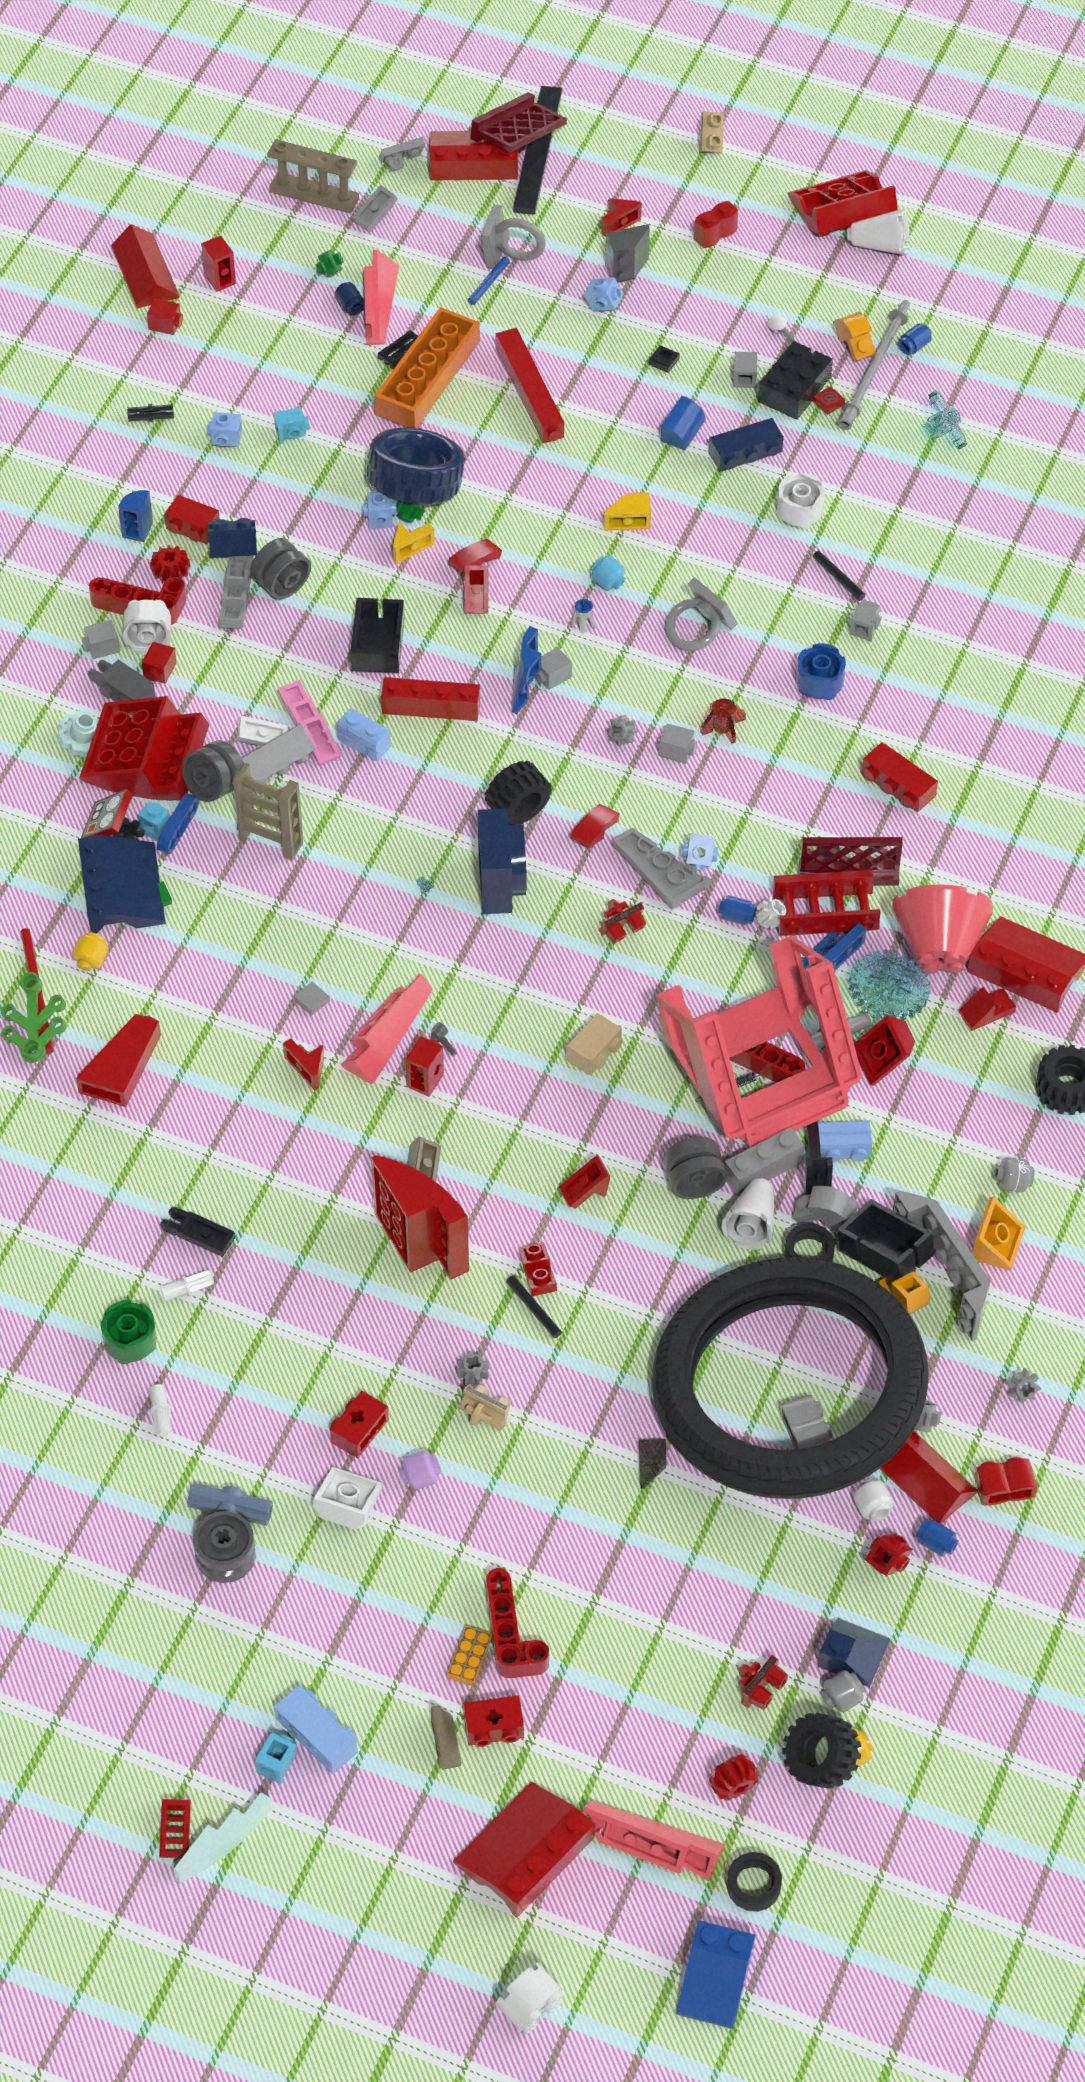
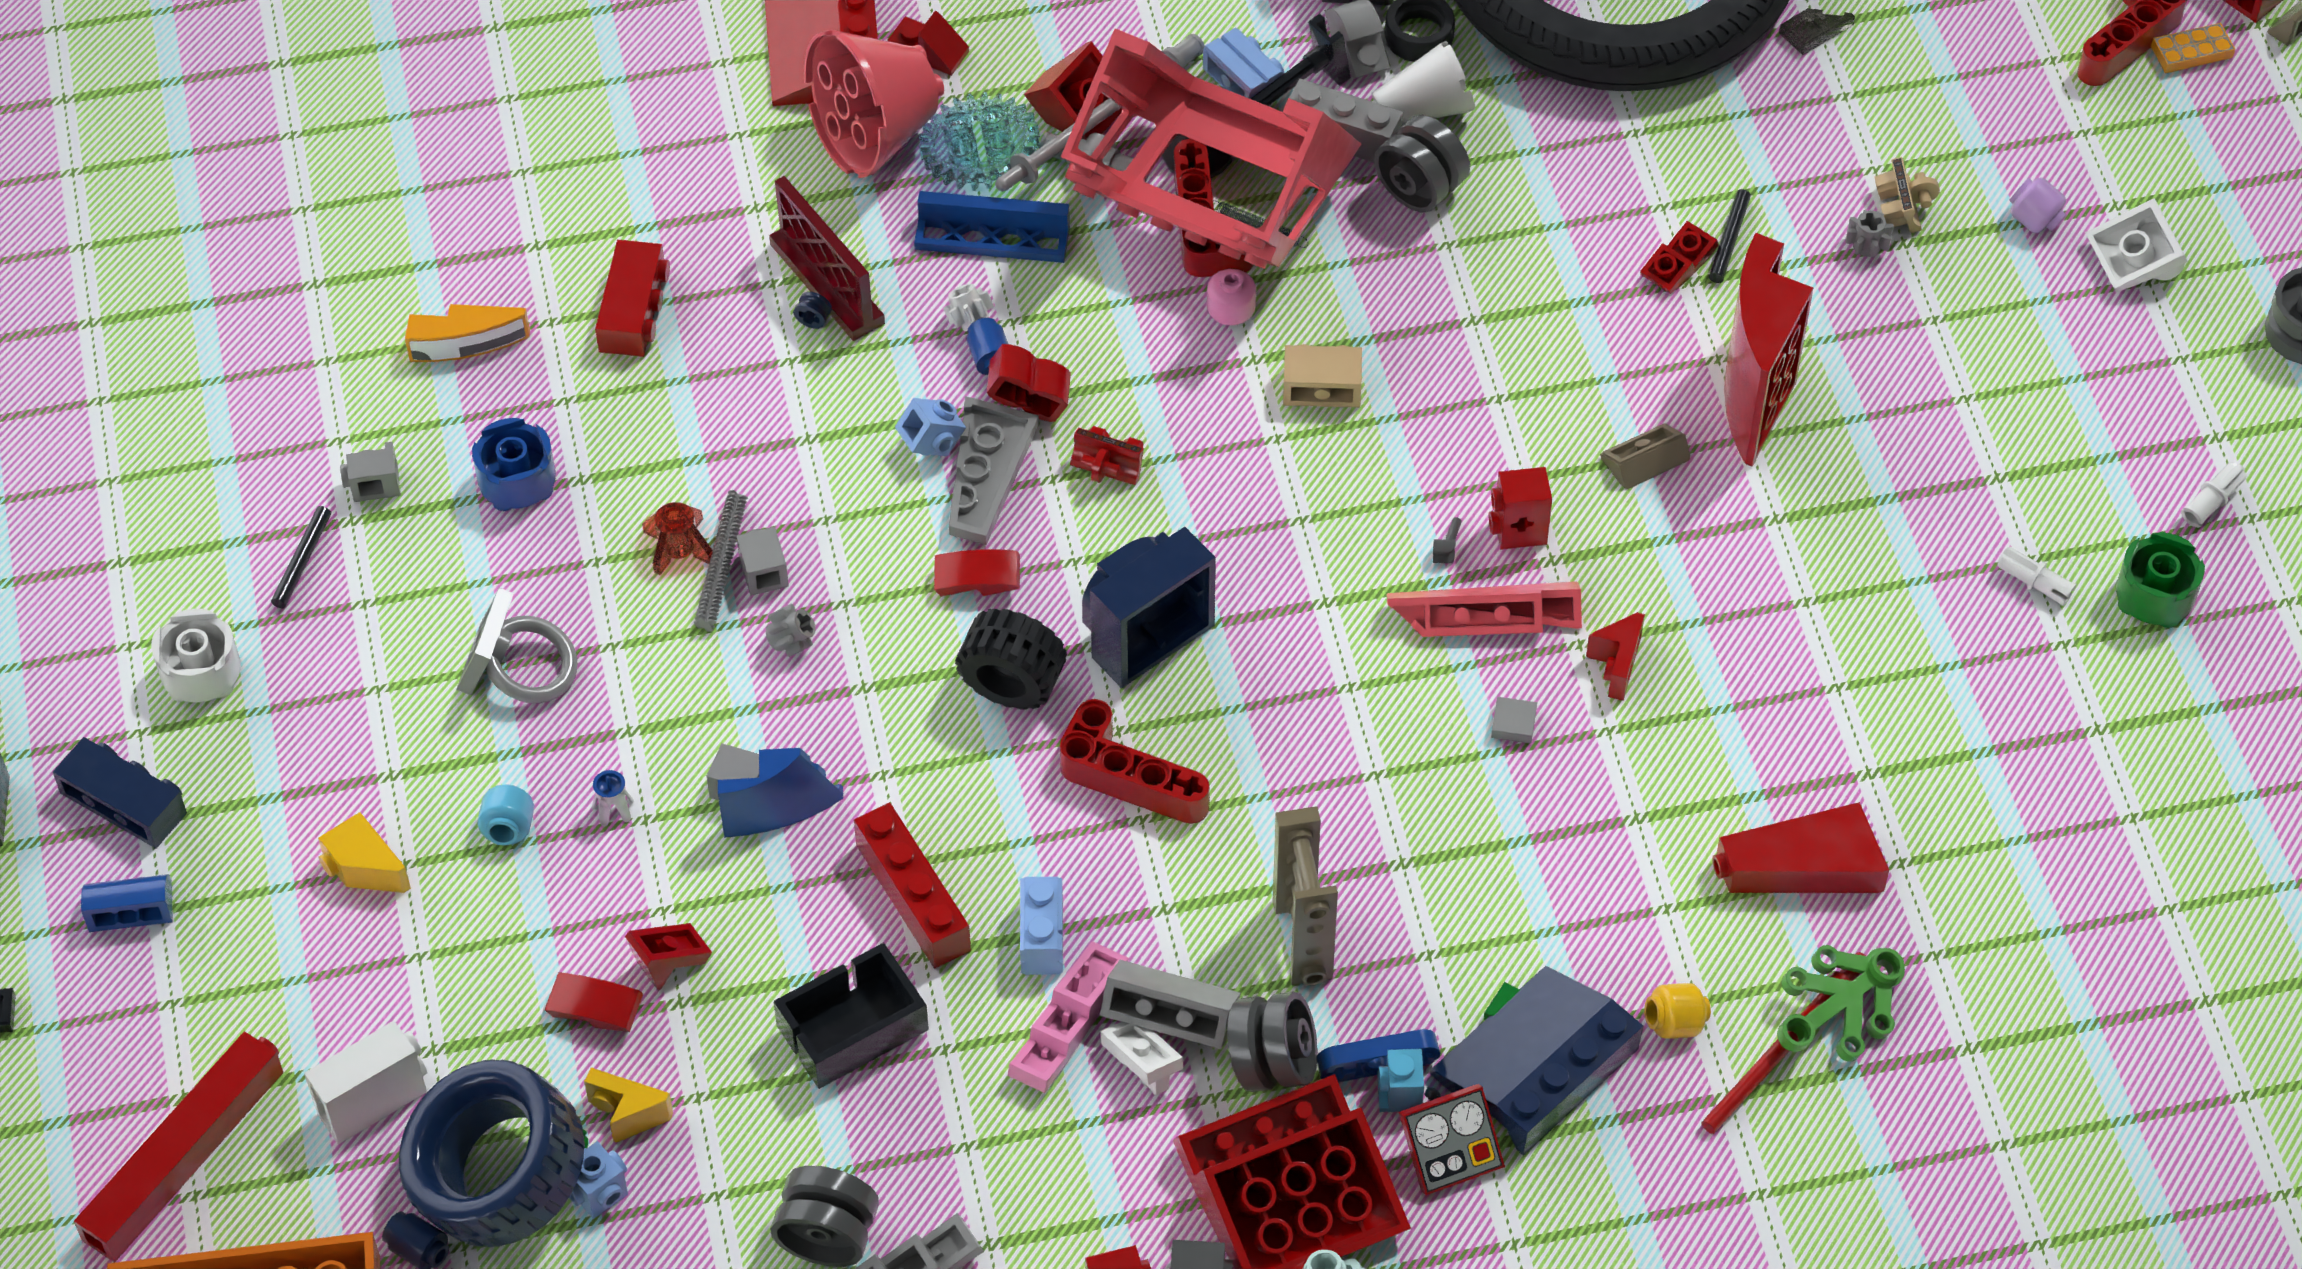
camera: 125 degrees left, 0 degrees up
(199, 1231) = (1954, 612): black hinge -> none
(230, 1499) = (2254, 352): sand blue piece -> none
(359, 1424) = (2041, 293): red brick -> none
(421, 816) = (1180, 791): none -> red beam
(424, 884) = (1226, 711): clear light blue piece -> none
(498, 450) = (367, 1081): none -> white brick
(585, 1182) = (1529, 261): red slope -> none
(694, 905) = (1028, 382): none -> red brick
(701, 737) = (720, 561): none -> light grey axle
(825, 885) = (892, 292): red fence -> none
(879, 1110) = (1025, 167): none -> light grey bar
(933, 697) = (464, 332): none -> light orange slope

